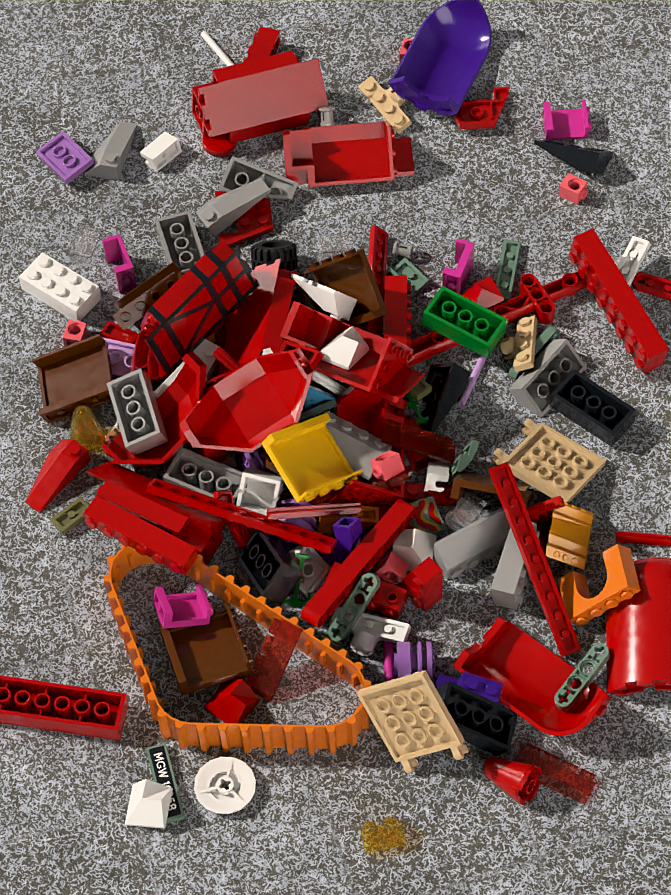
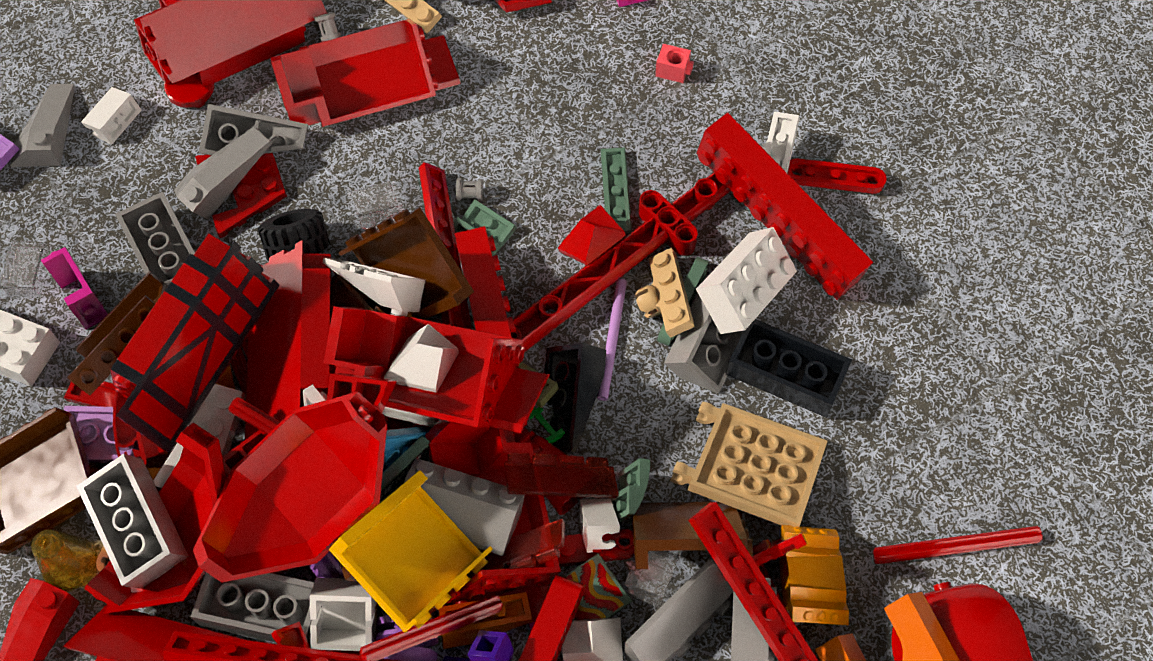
camera: 15 degrees left, 5 degrees up
(75, 327) = (21, 399): coral brick -> none
(387, 465) = (526, 530): coral brick -> none
(464, 256) = (551, 219): dark pink panel -> none
(464, 321) = (582, 279): green brick -> none
(578, 344) = (746, 280): none -> white brick
(588, 160) = (678, 22): black wedge -> none

